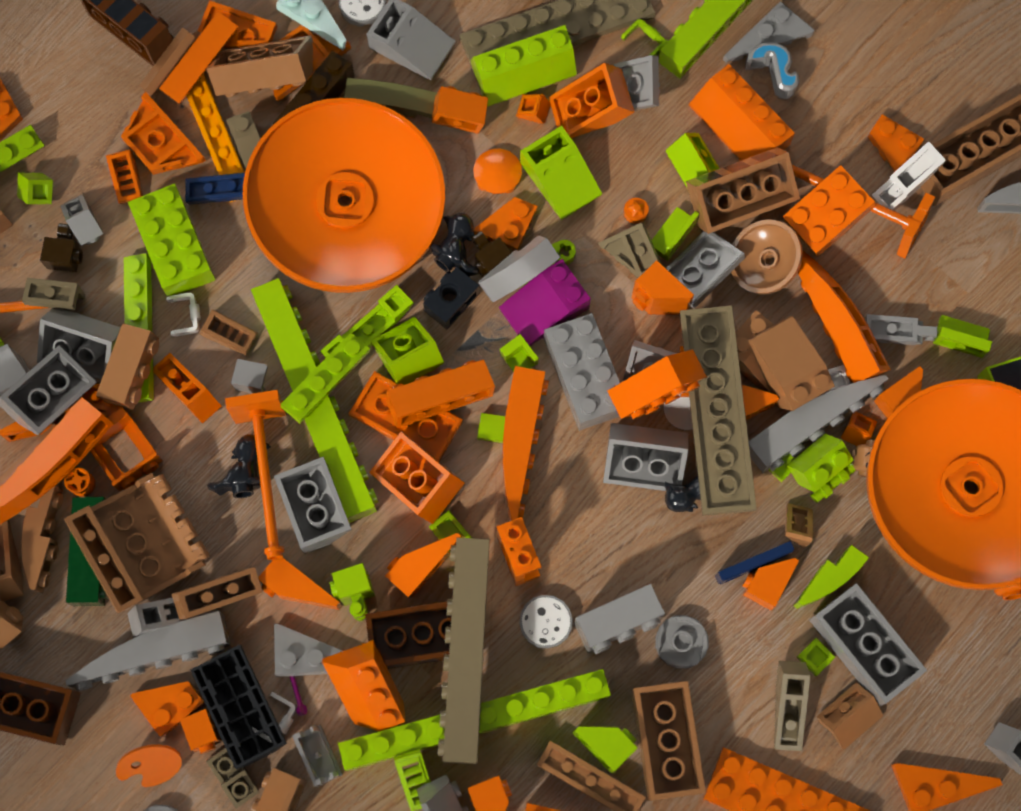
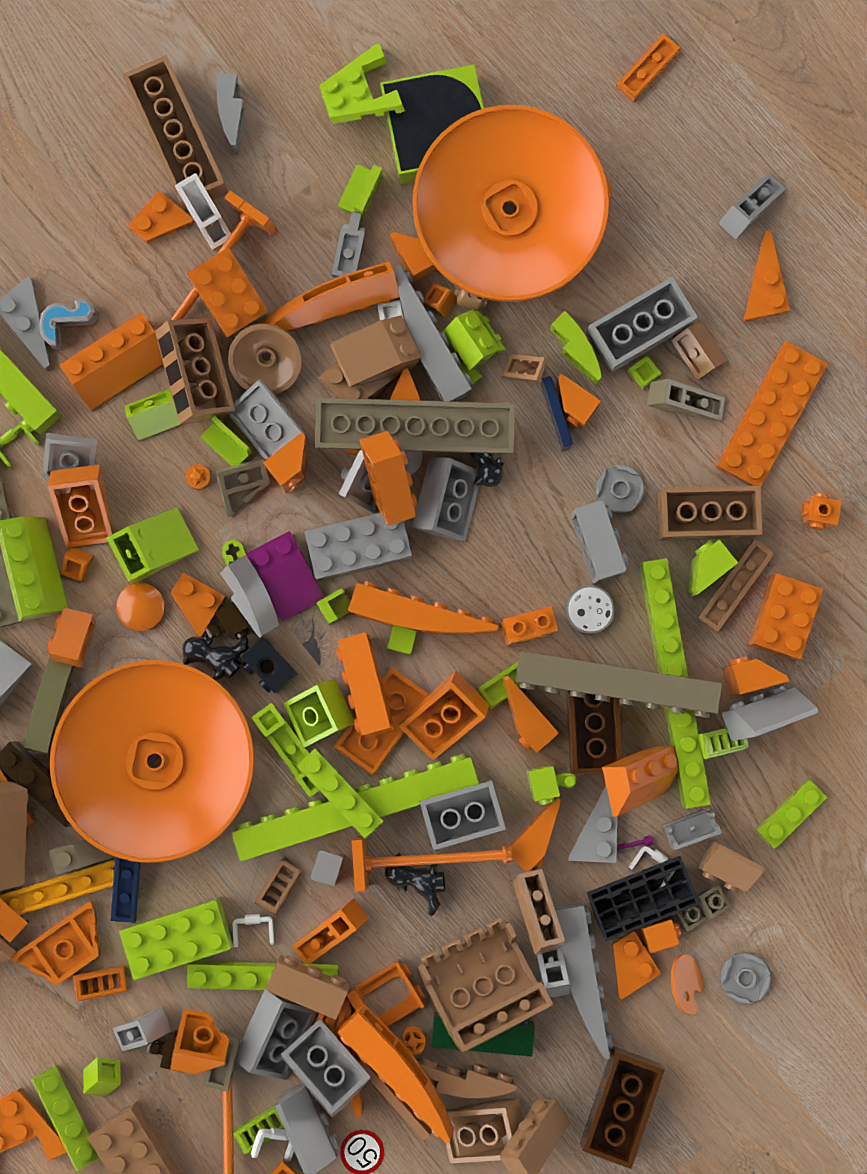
camera: 85 degrees left, 10 degrees up
(67, 265) = (198, 1044): none -> orange slope

